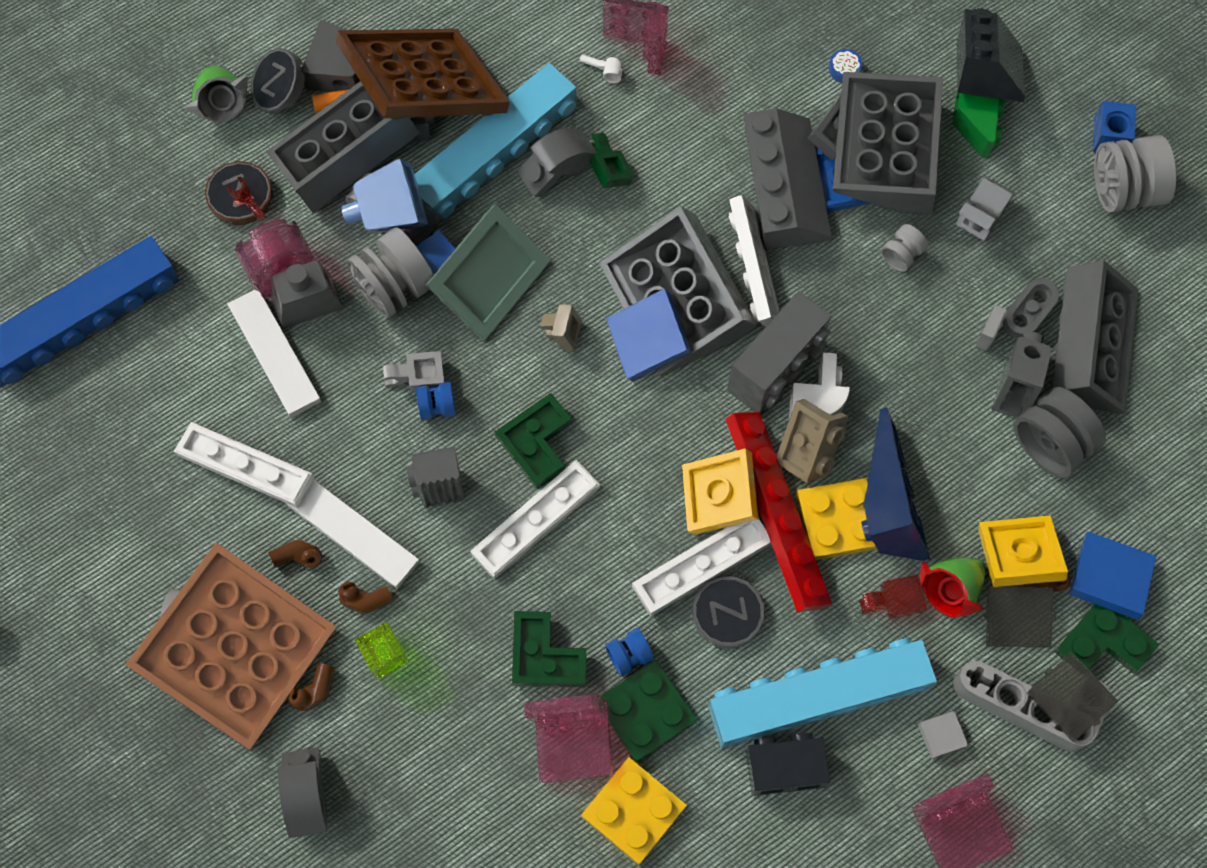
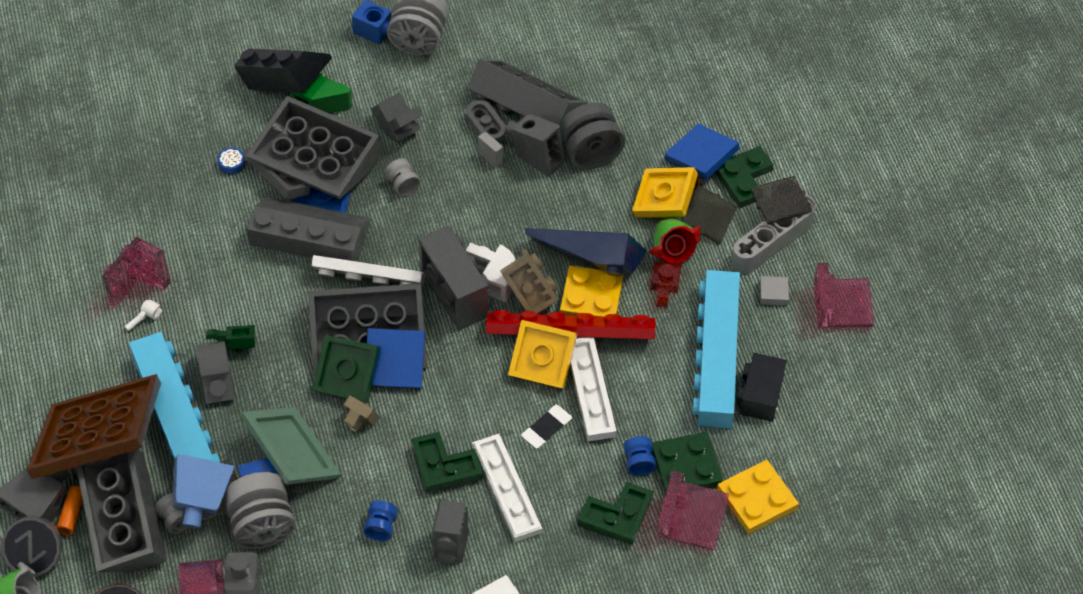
camera: 70 degrees left, 15 degrees down
(420, 370) = (348, 525): light grey plate -> none
(610, 289) = (346, 368): none -> dark green plate
(637, 534) = (546, 426): none -> sticker
(728, 612) = (633, 386): black tile -> none

